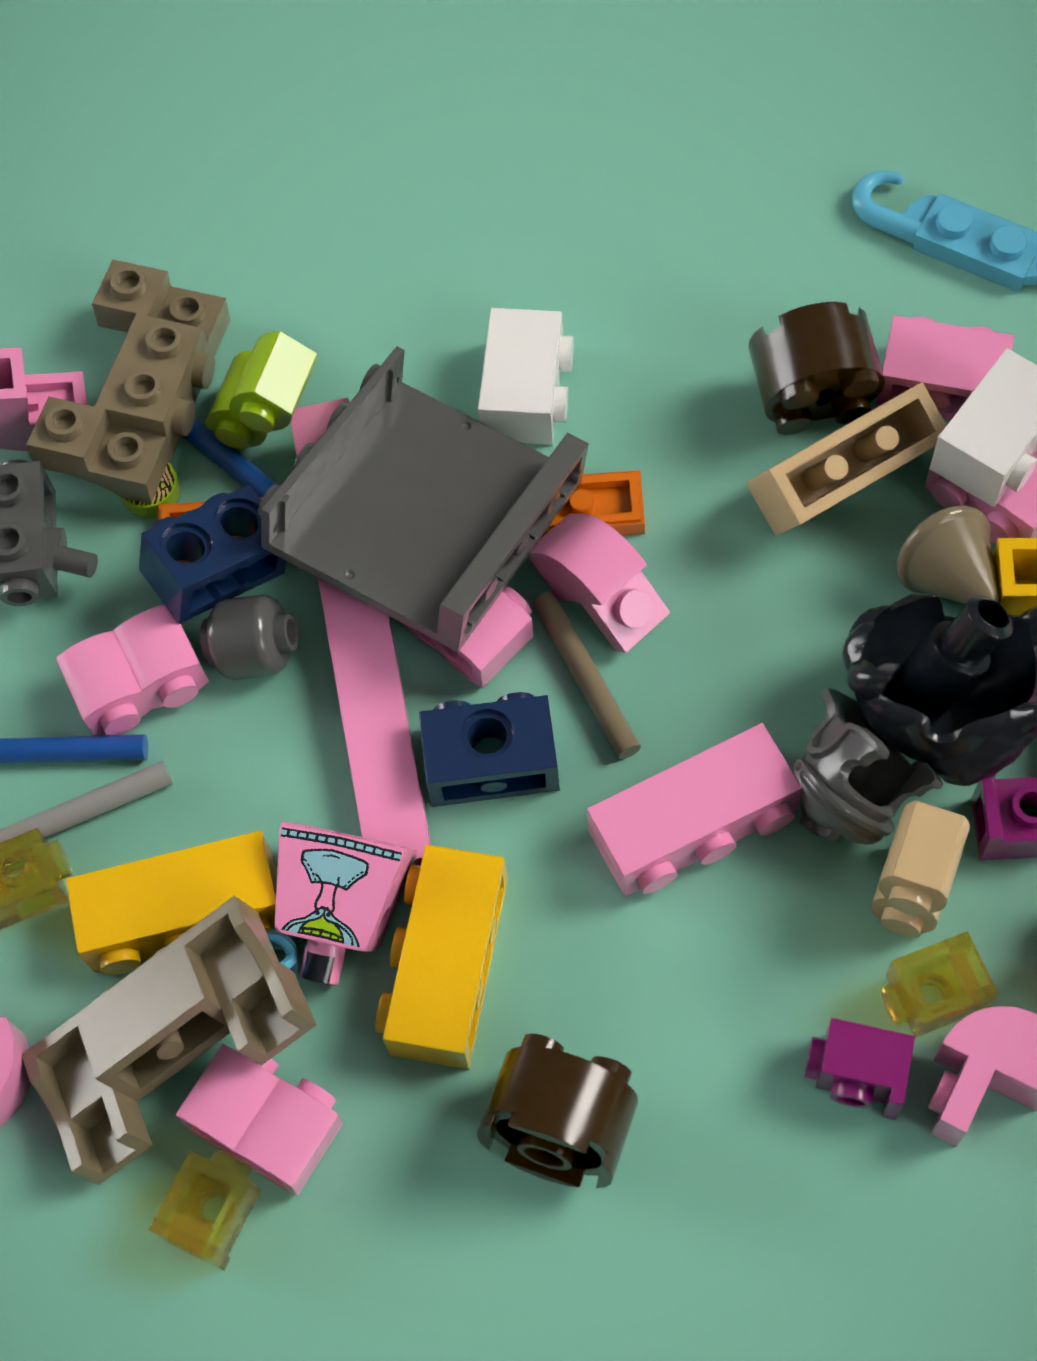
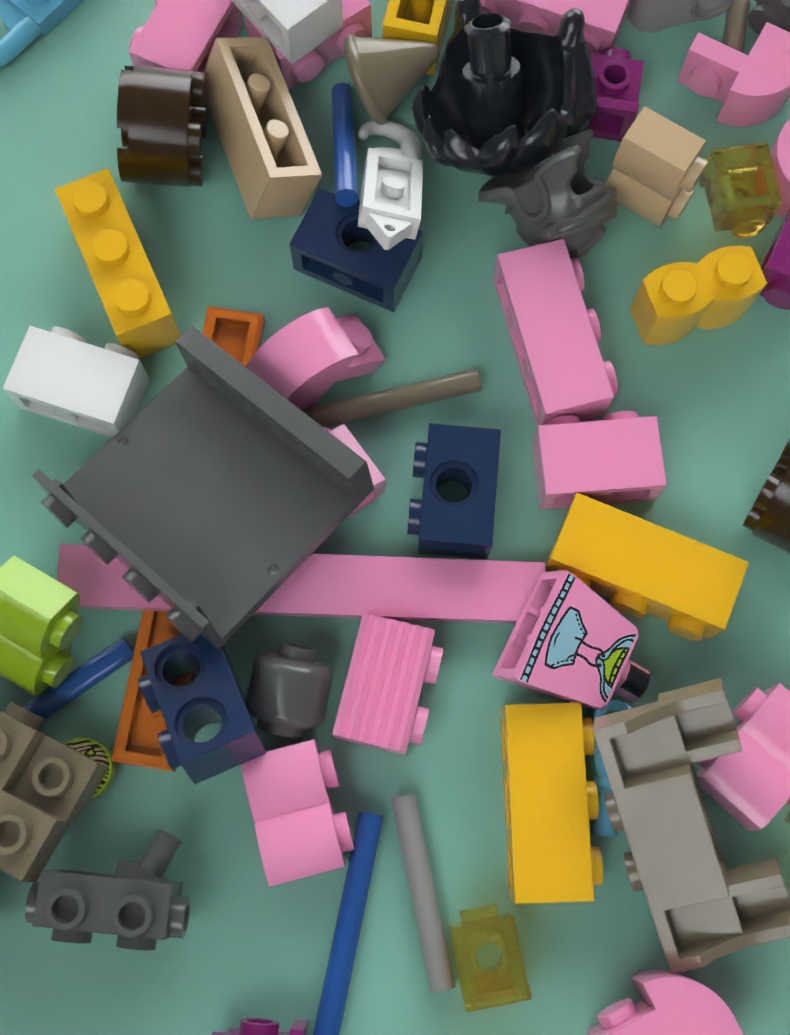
camera: 85 degrees left, 10 degrees up
(269, 726) = (386, 684): none -> bright pink brick
(556, 885) = (601, 459): none -> bright pink brick
(618, 396) = (118, 264): none -> yellow arch
(740, 558) = (371, 274): none -> dark blue brick
(795, 969) = (697, 295): none -> yellow brick
(797, 592) = (391, 185): none -> white plate
(838, 548) = (344, 145): none -> blue bar

